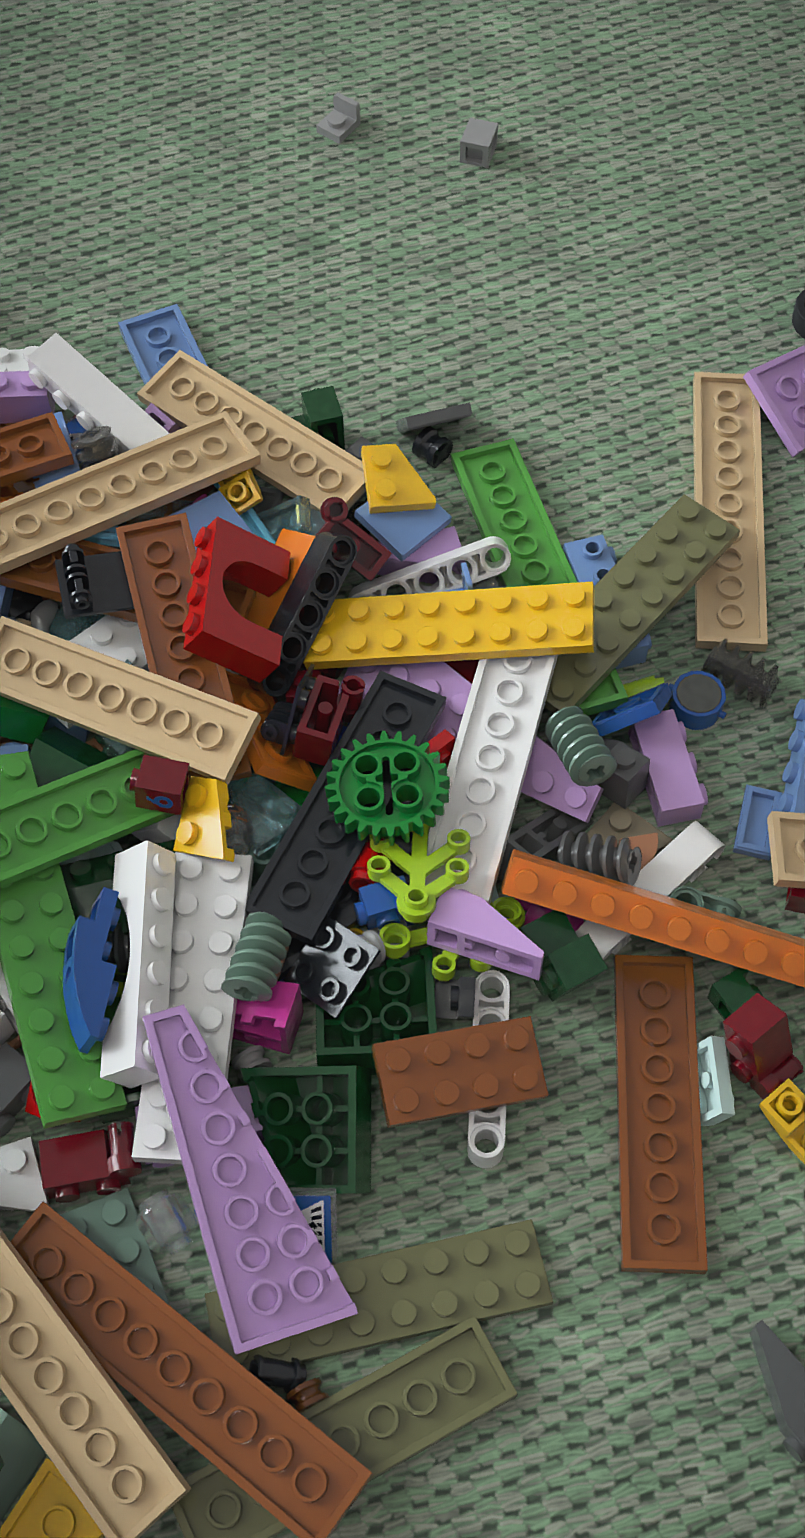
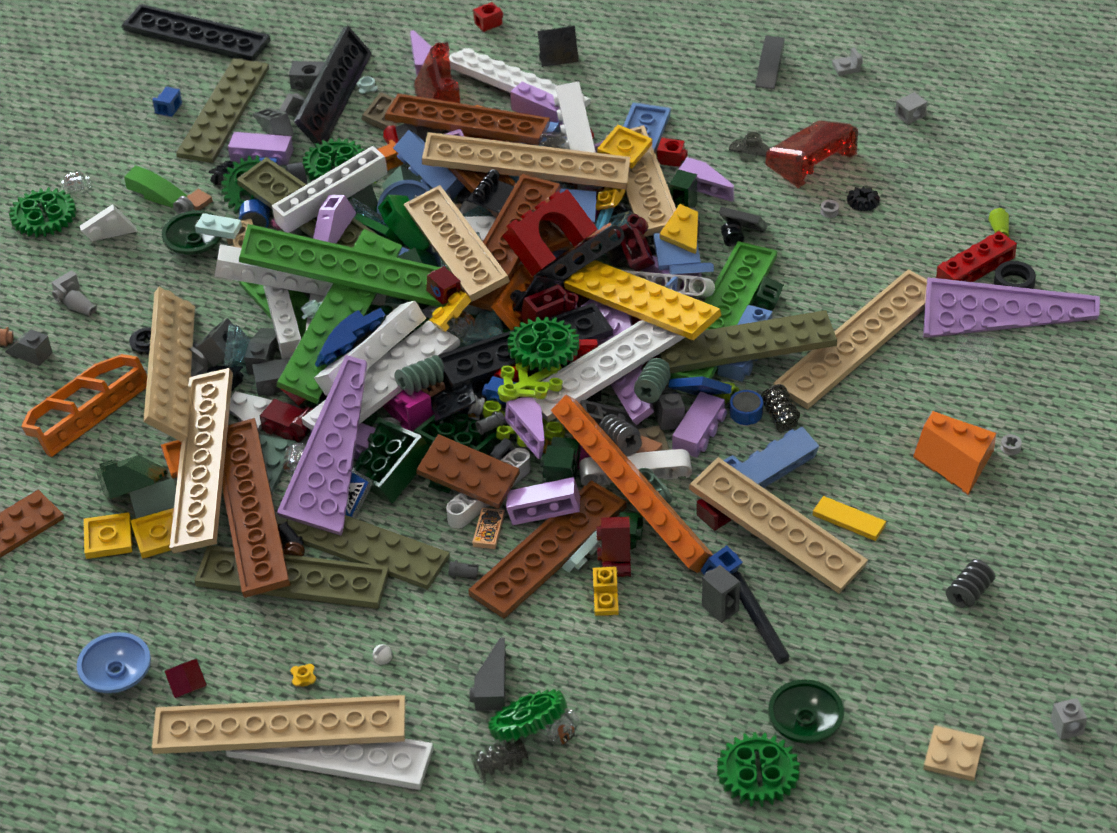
camera: 40 degrees right, 15 degrees down
(191, 395) = (626, 143): none -> yellow plate
(241, 366) = (671, 152): none -> red brick
(244, 168) = (770, 62): none -> dark grey slope
(305, 376) = (709, 180): none -> lavender slope
(329, 305) = (749, 147): none -> clear smoke plate
(417, 267) = (803, 150): none -> clear red windscreen
(419, 957) = (490, 422): none -> dark grey pin
(450, 534) = (691, 268): none -> medium blue tile
(514, 346) = (826, 212): none -> light grey bush
(544, 309) = (863, 204): none -> black gear
(544, 1136) = (488, 528): none -> tile
(566, 511) = (765, 297): none -> dark green brick
(578, 1235) = (463, 570): none -> dark grey pin
(589, 1472) = (384, 654): none -> white hinge
(594, 1039) = (543, 501): none -> lavender brick
(731, 245) = (999, 220): none -> lime cone
(759, 313) = (978, 259): none -> red brick

